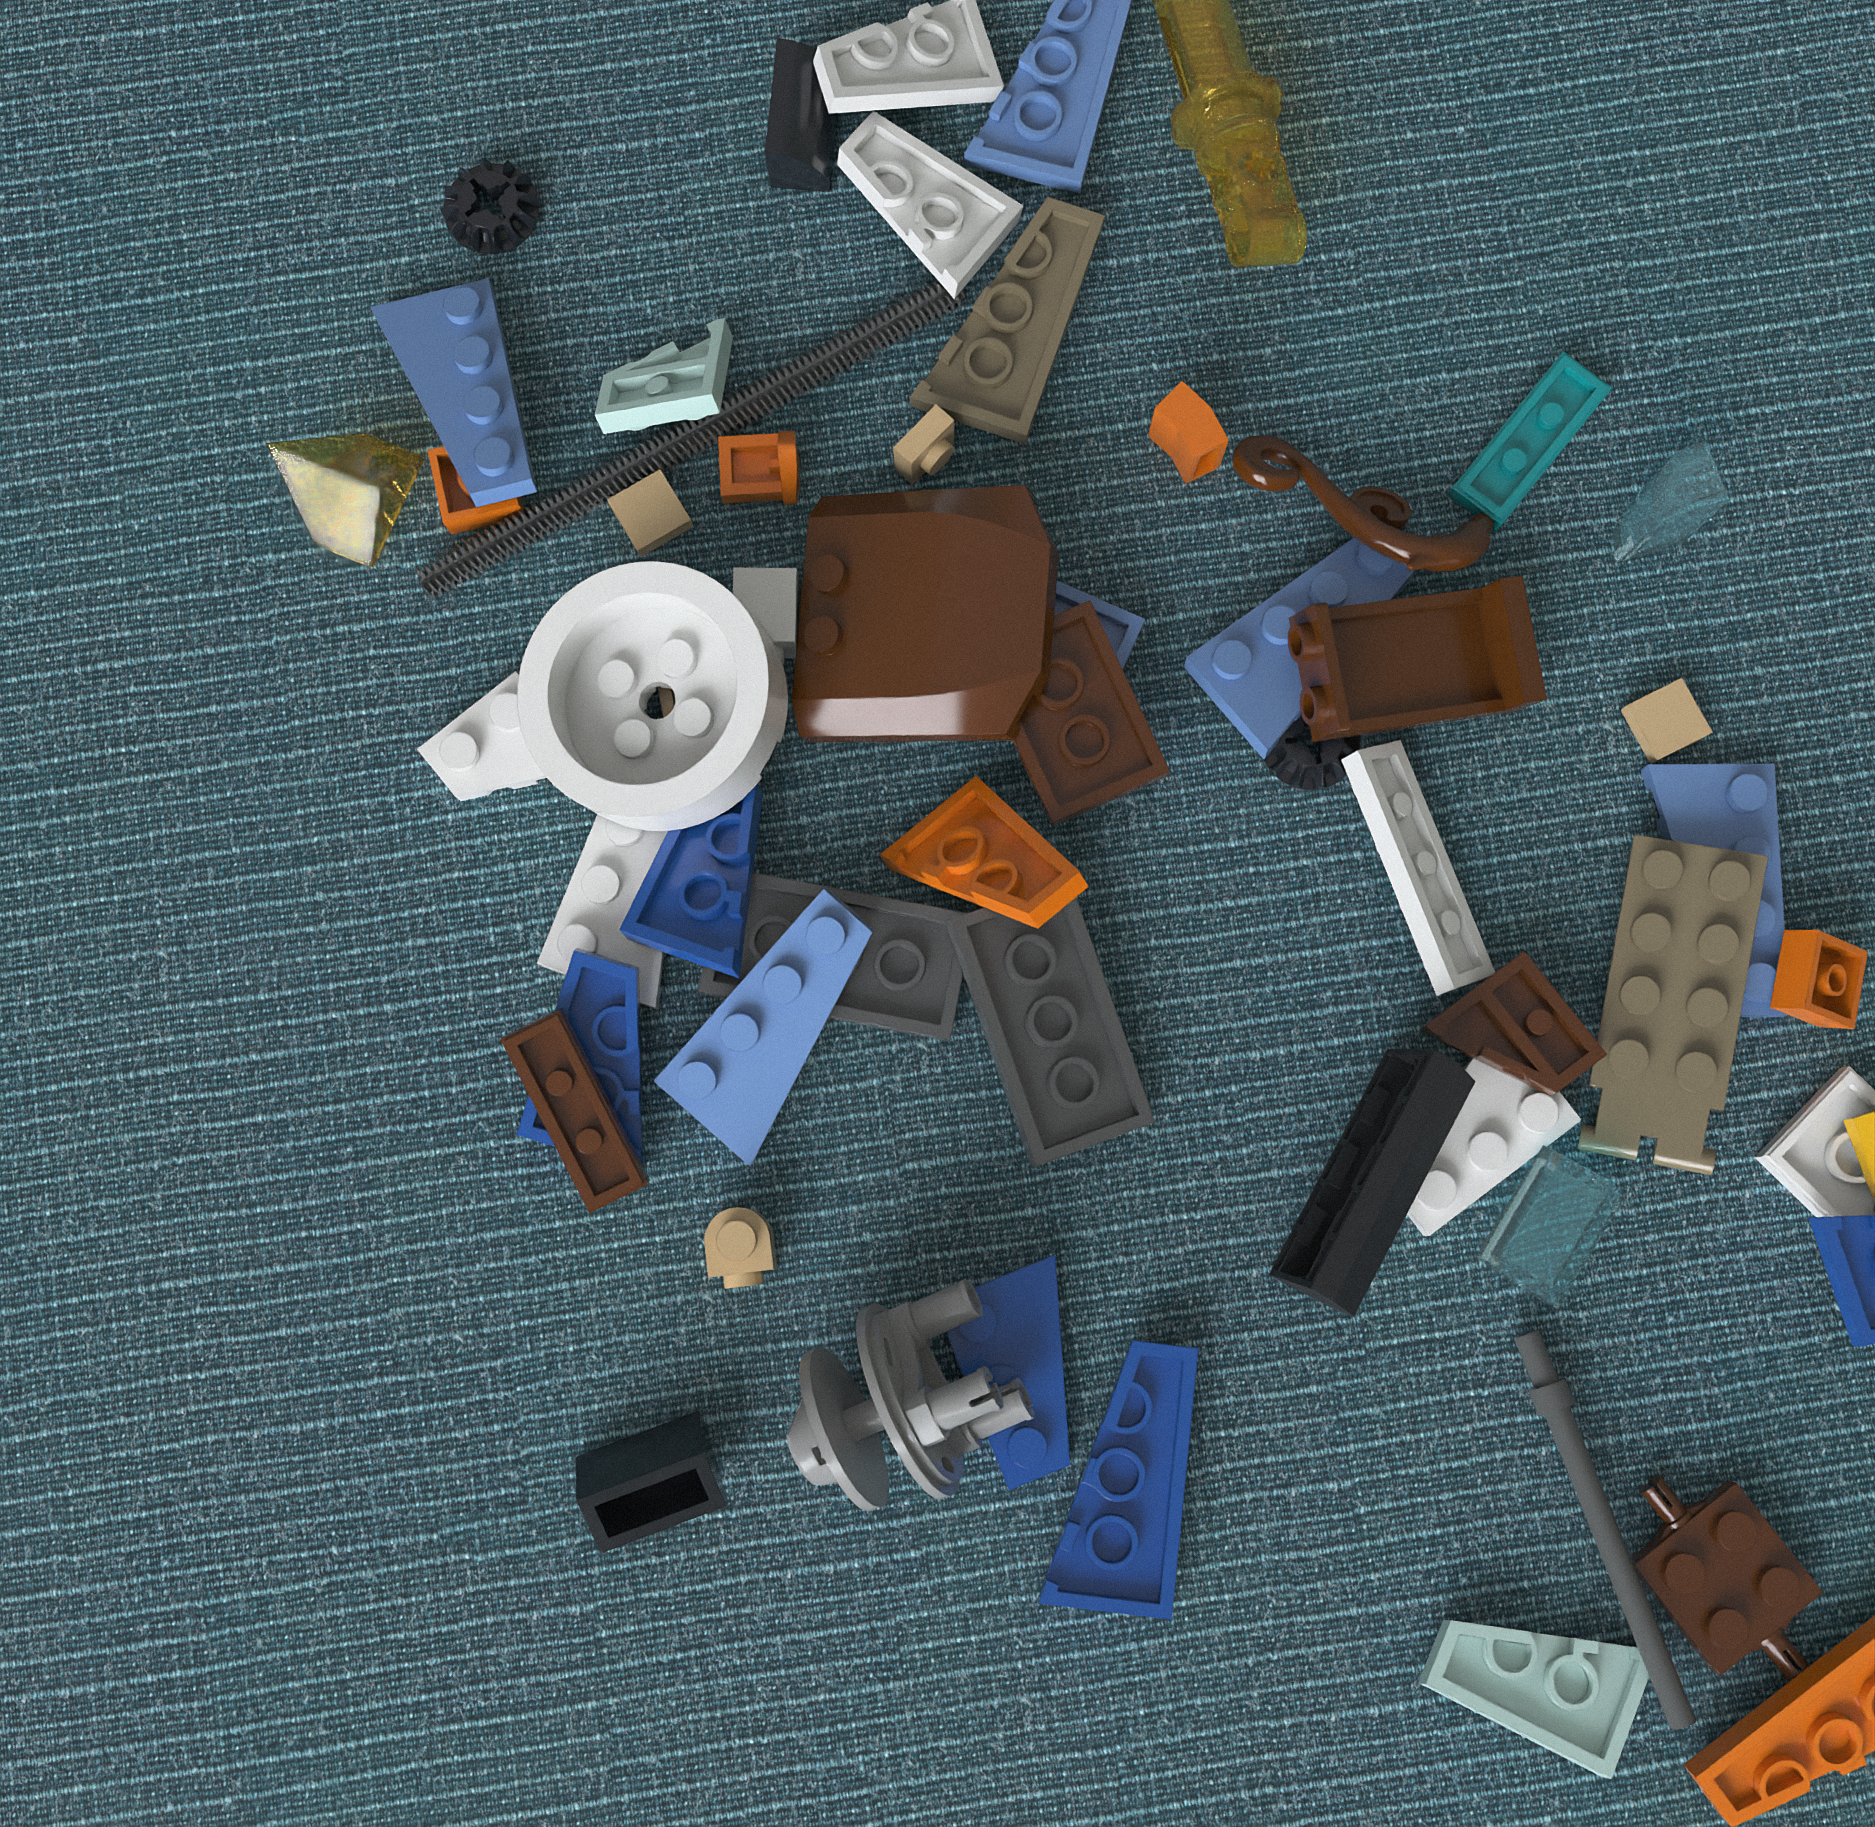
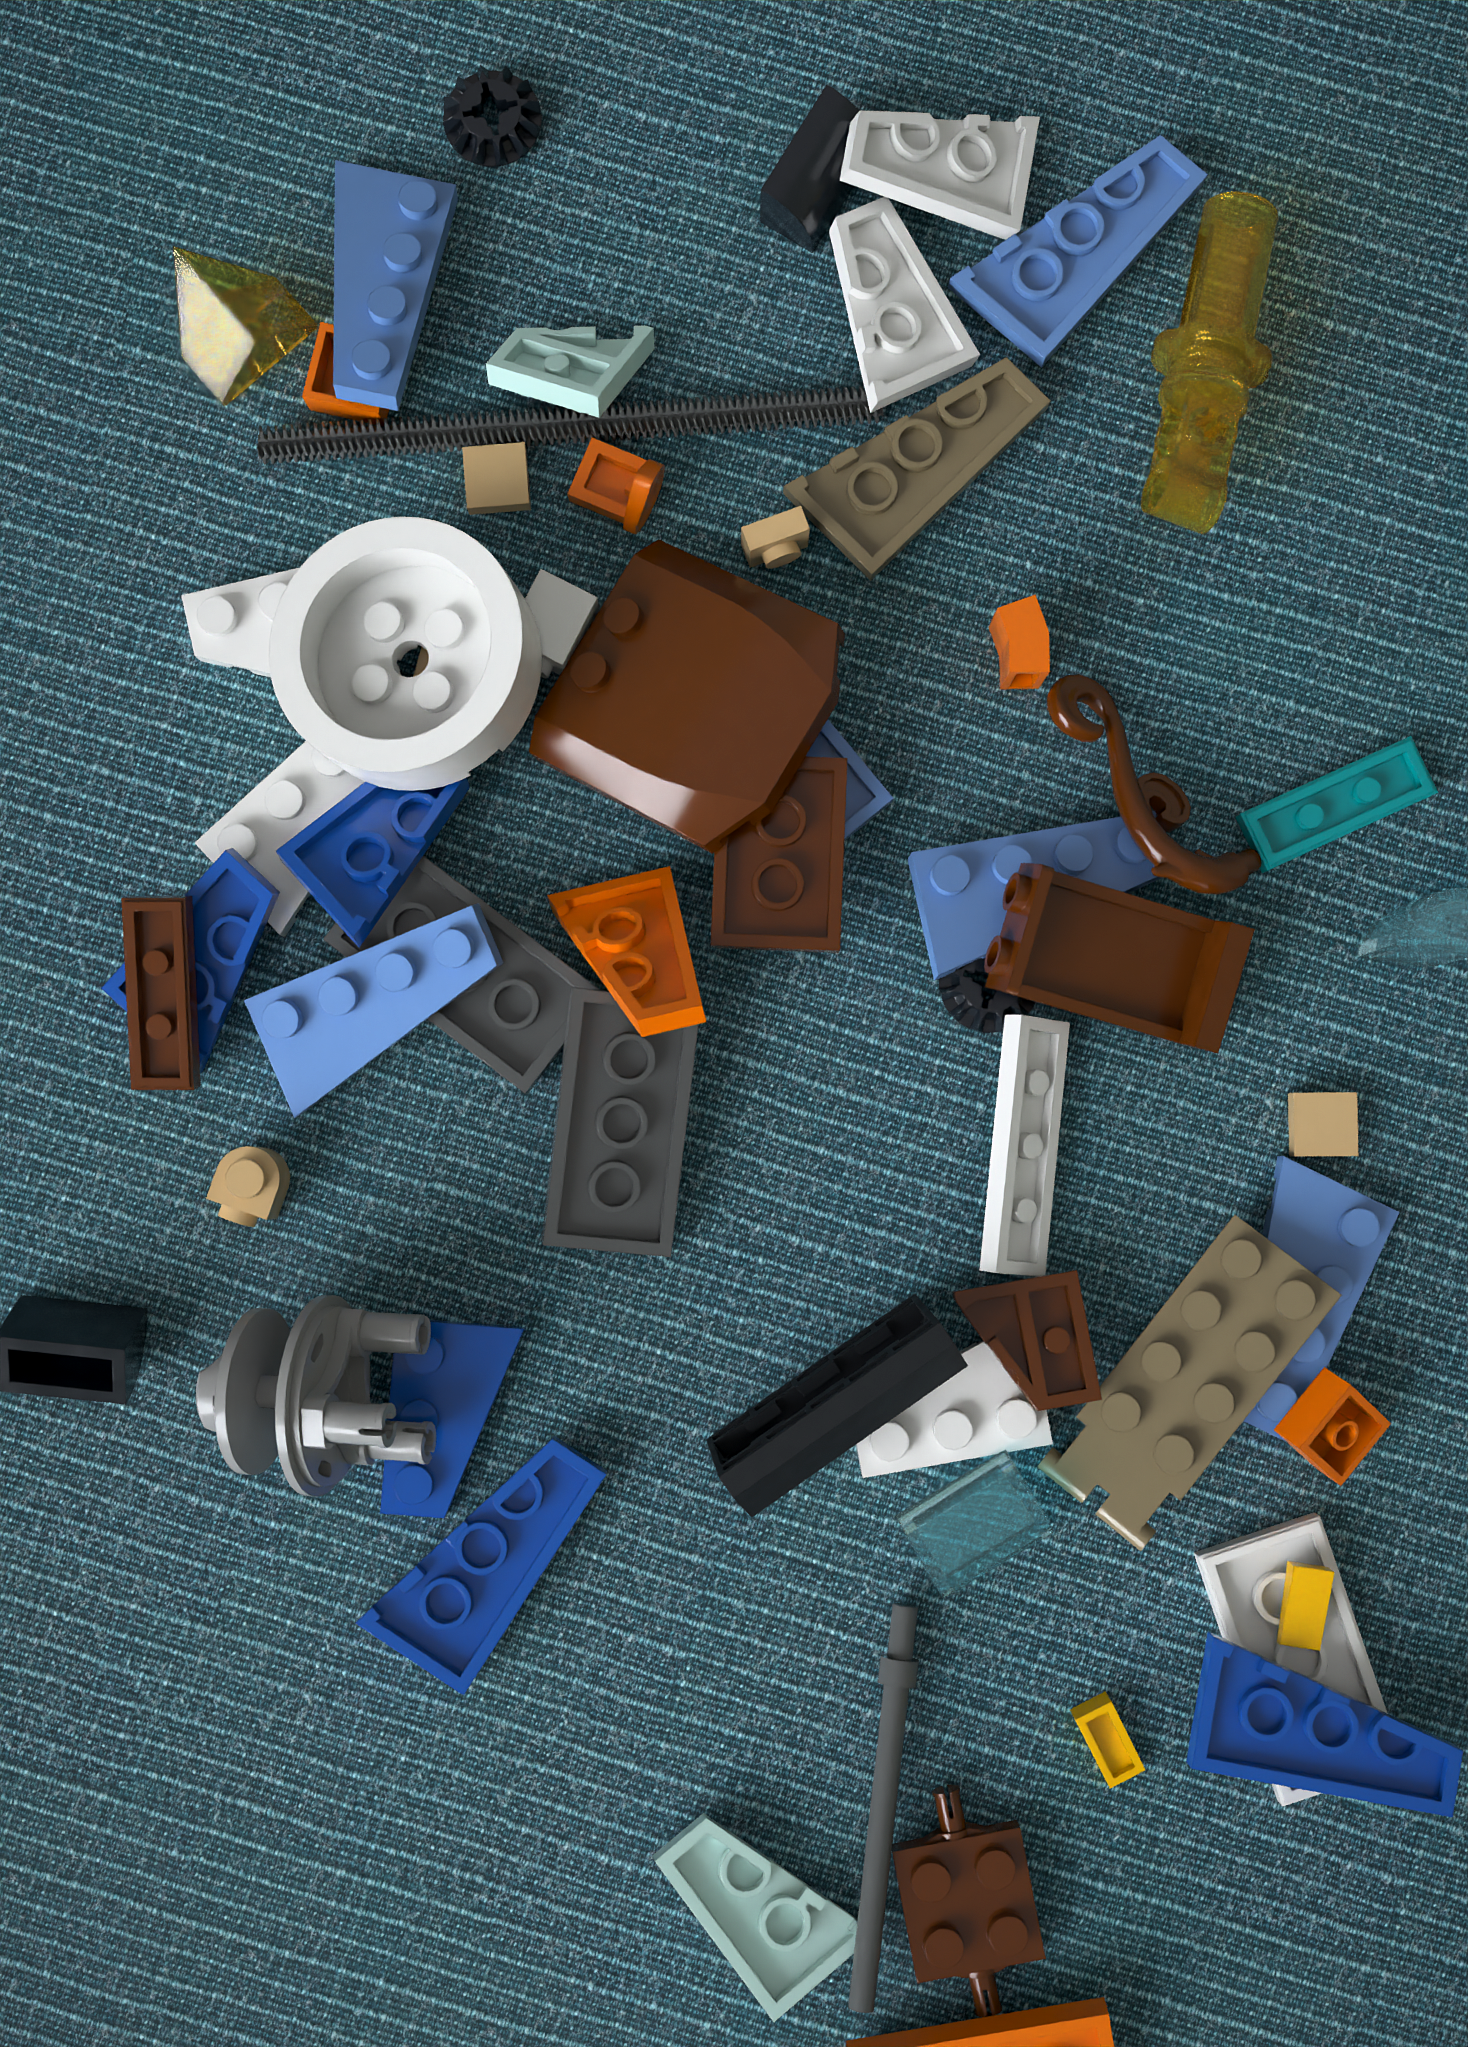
camera: 25 degrees right, 5 degrees up
(1769, 1364) = (1107, 1739): none -> yellow piece

